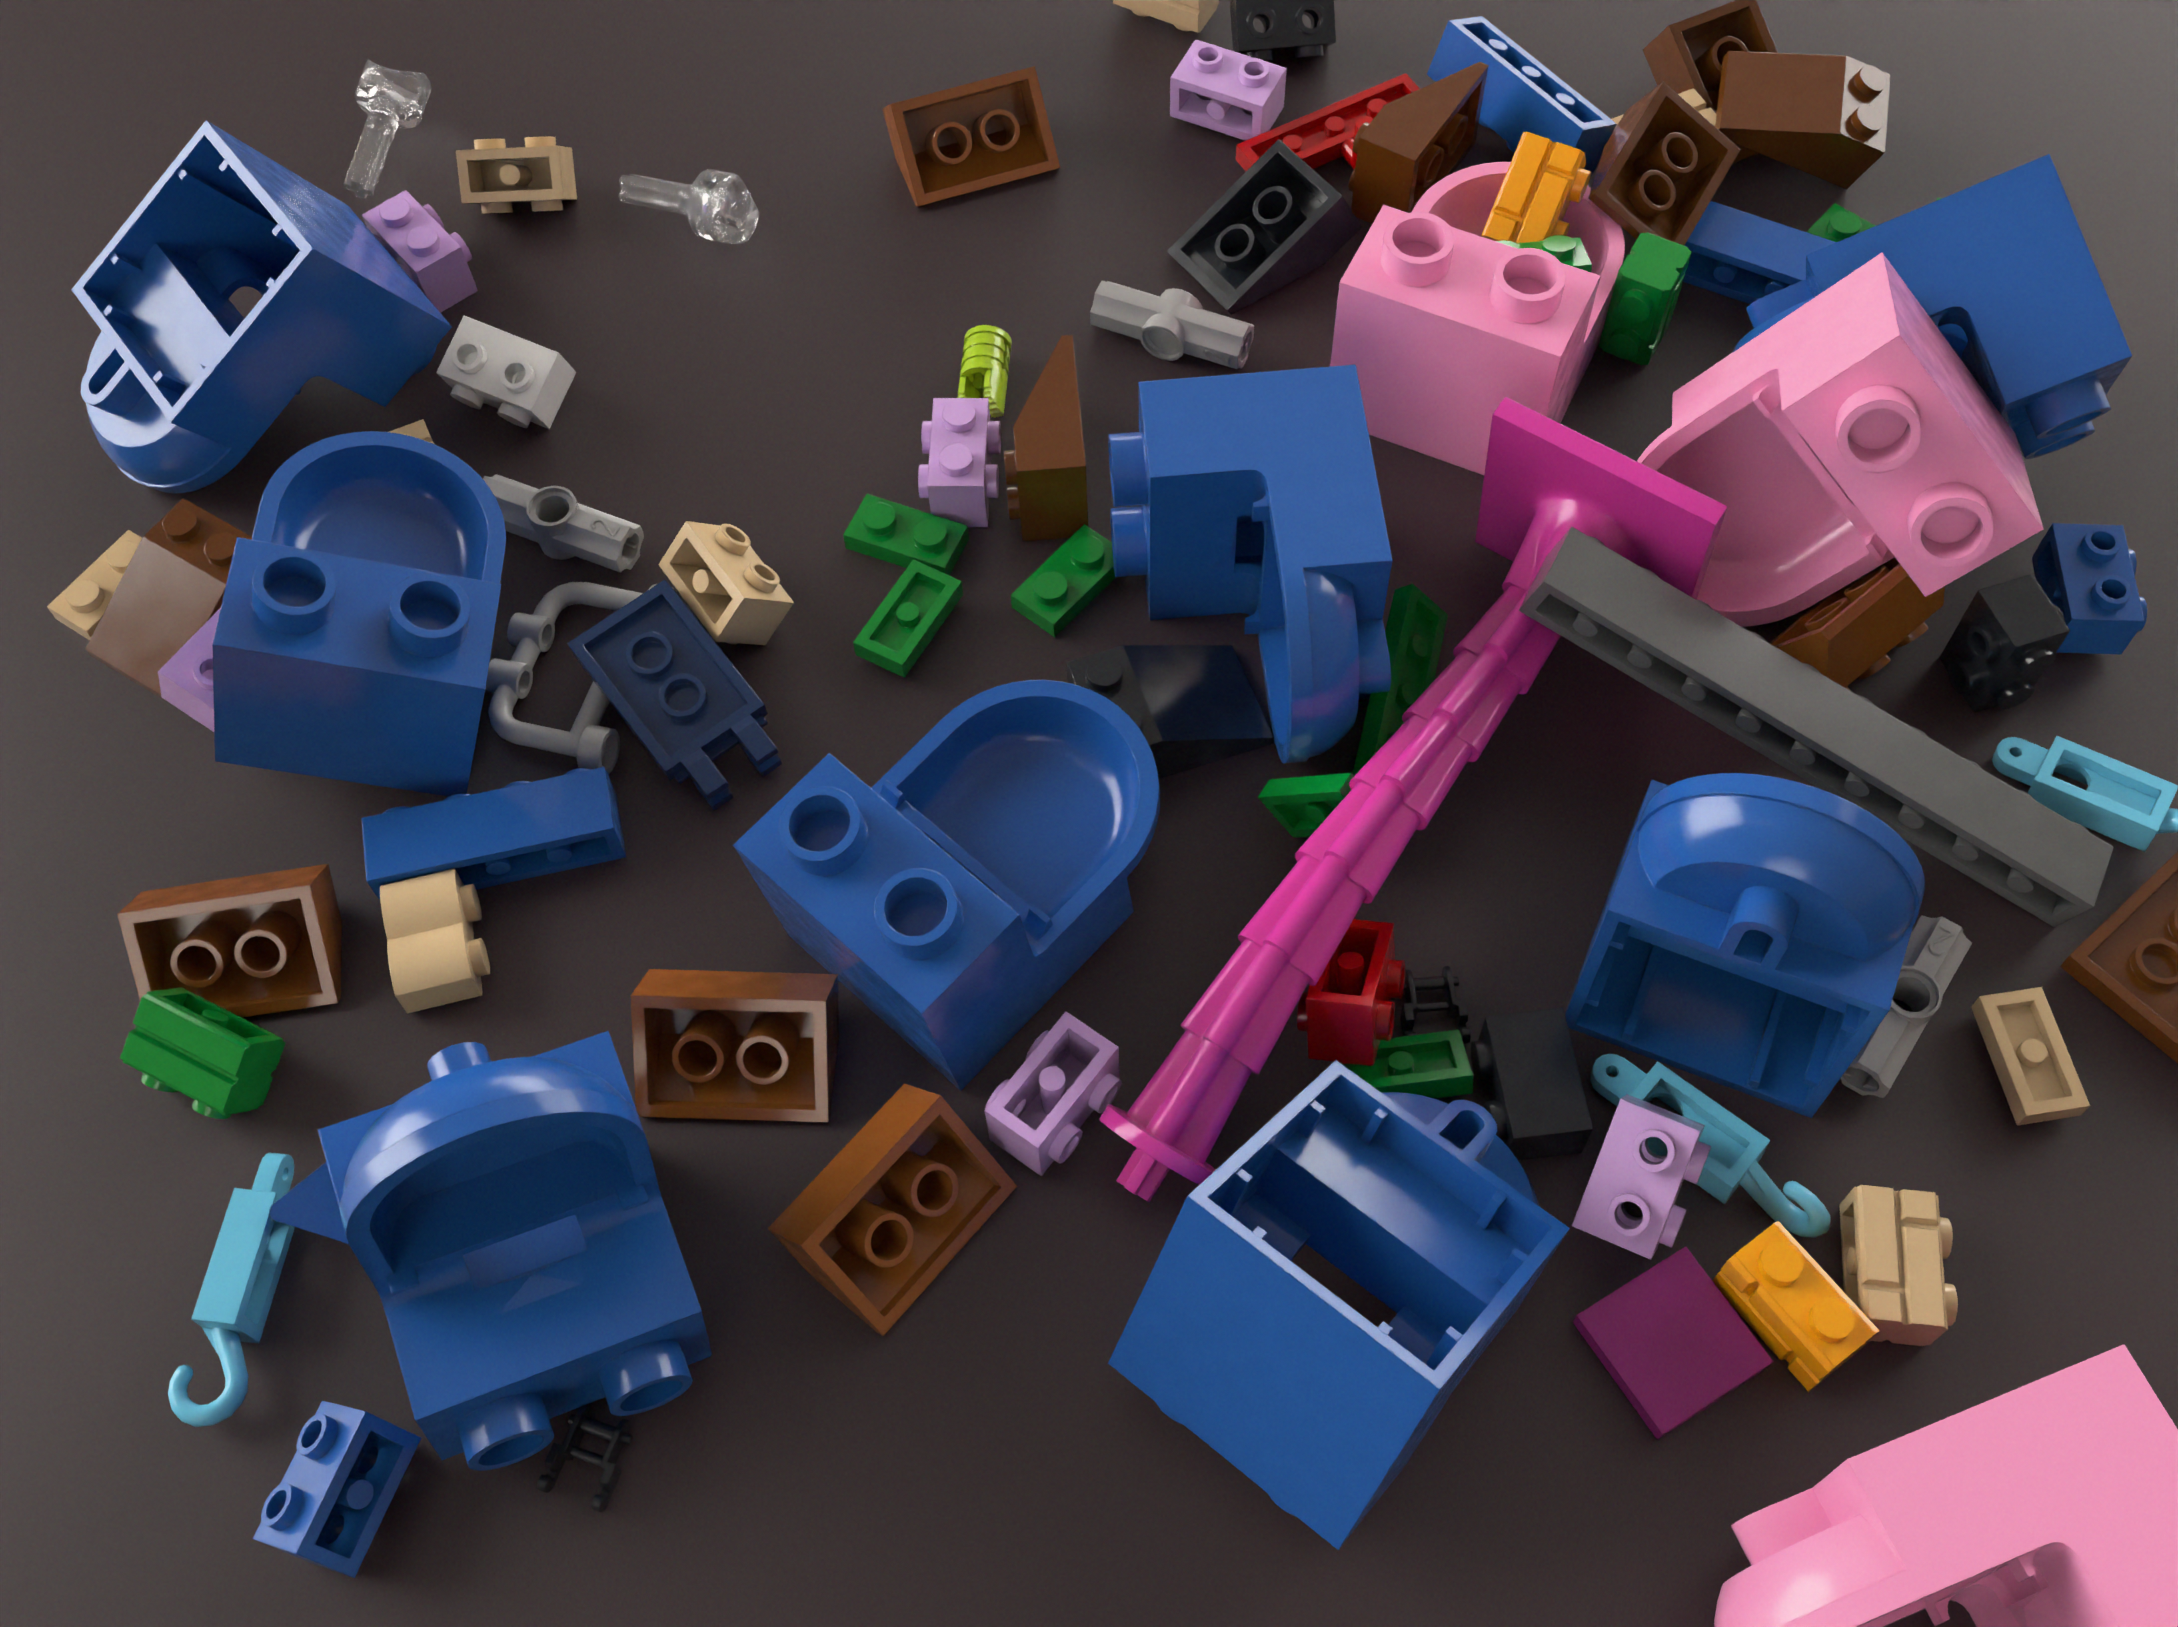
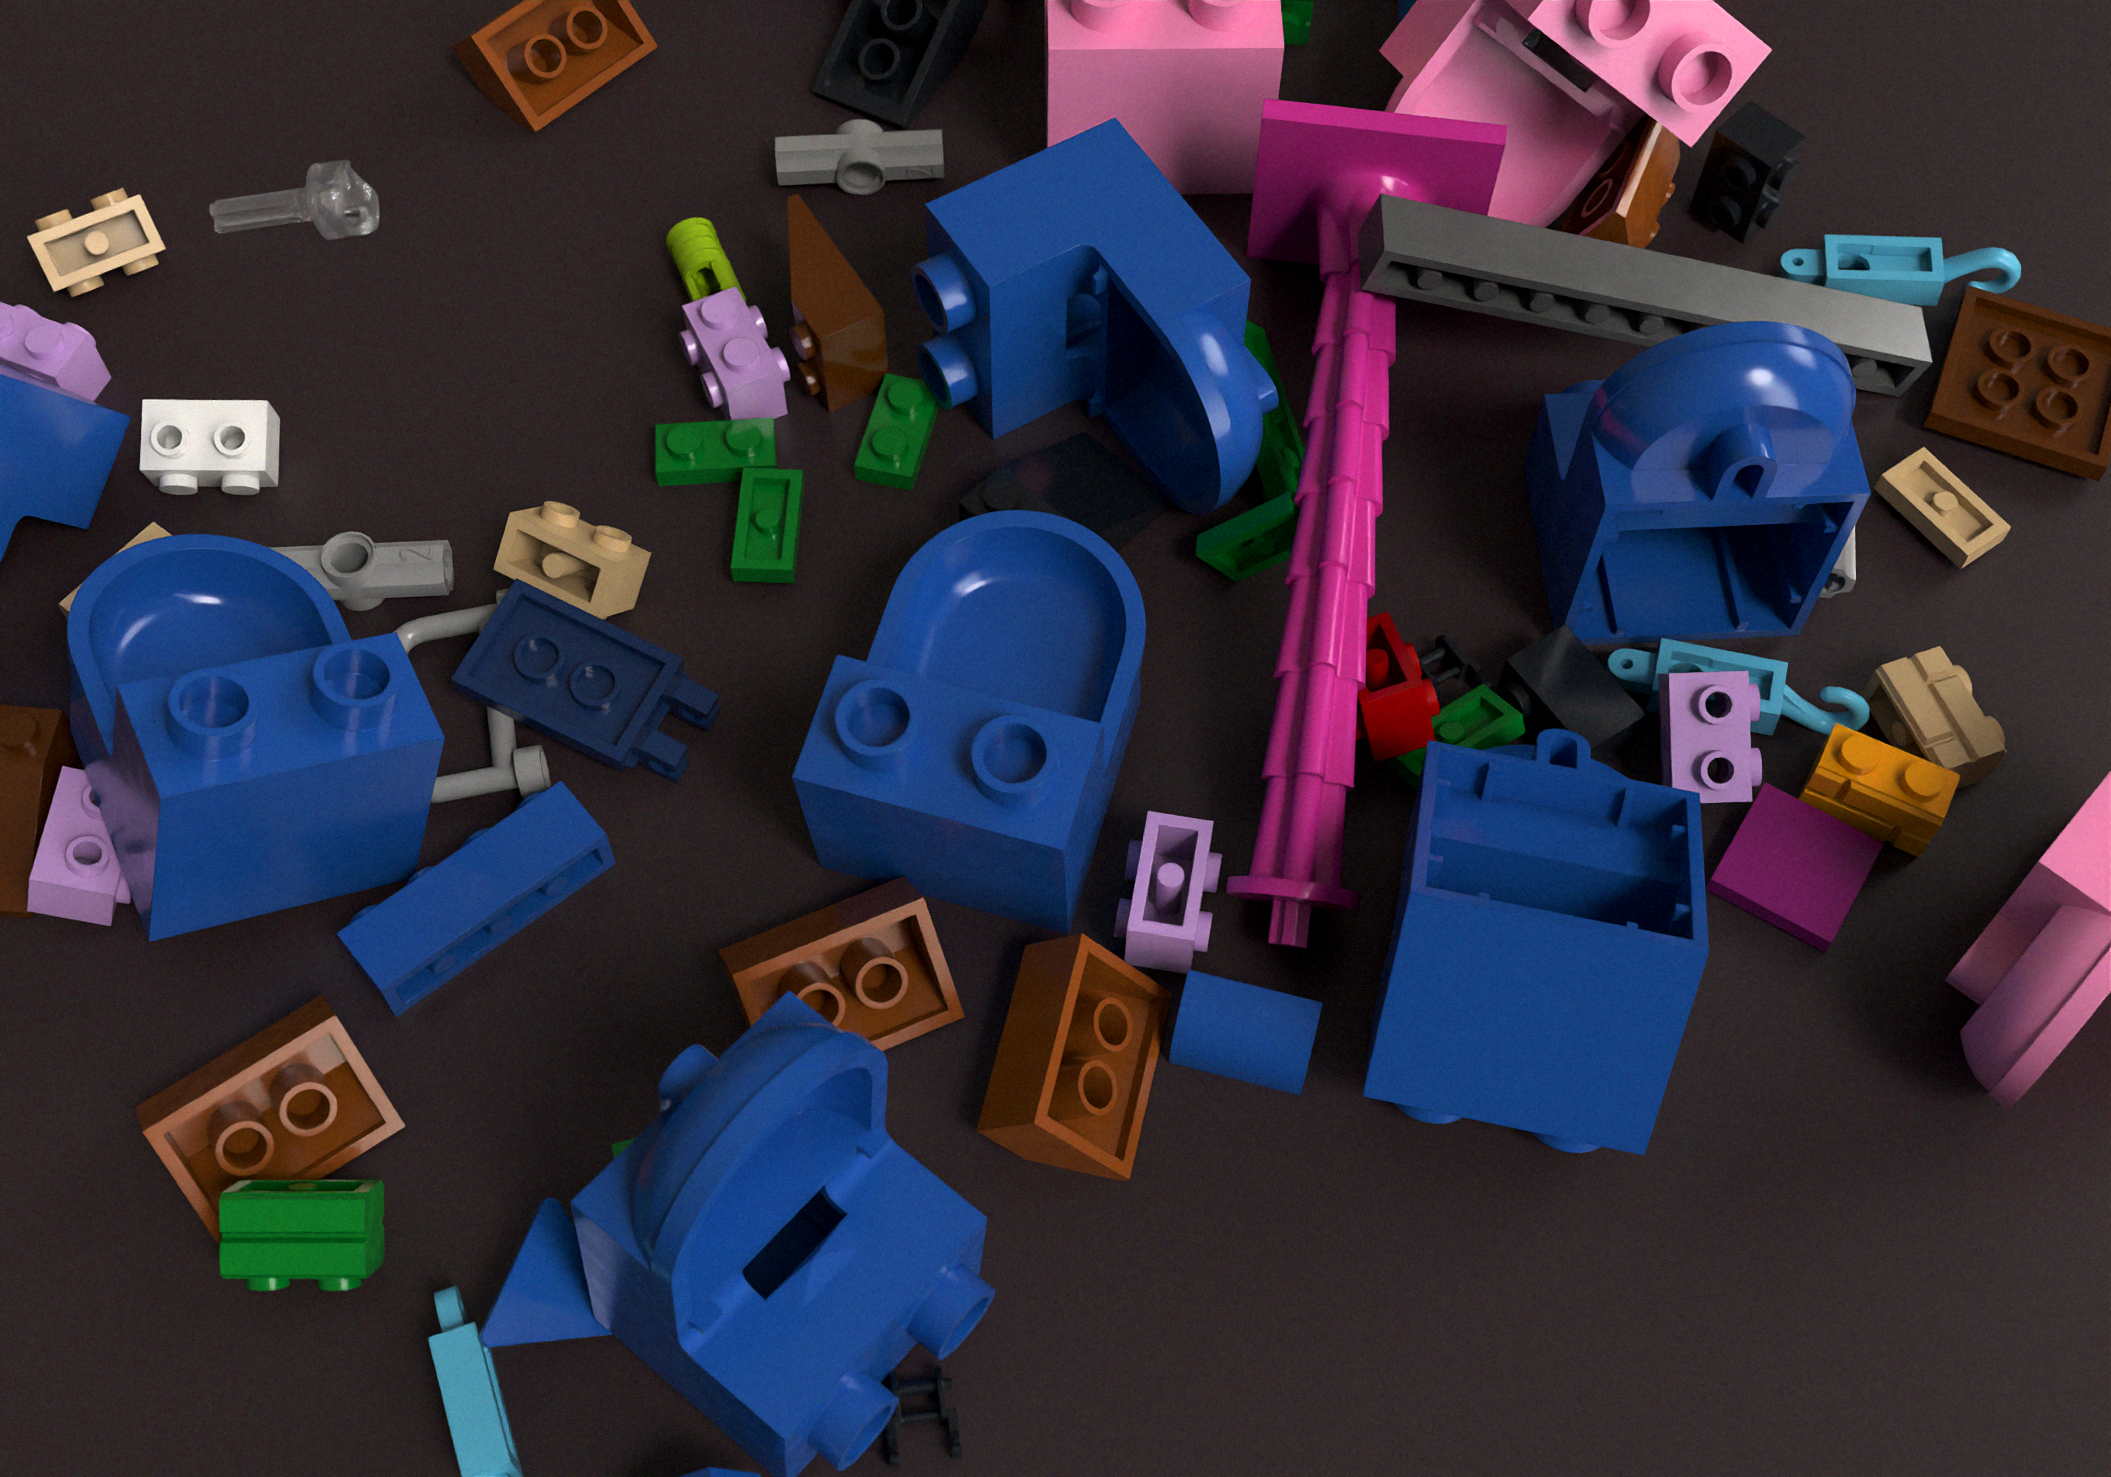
camera: 30 degrees left, 0 degrees up
(433, 940) = (476, 1020): tan brick -> none
(1052, 1253) = (1244, 1032): none -> blue brick
(2093, 584) = (1796, 95): blue brick -> none

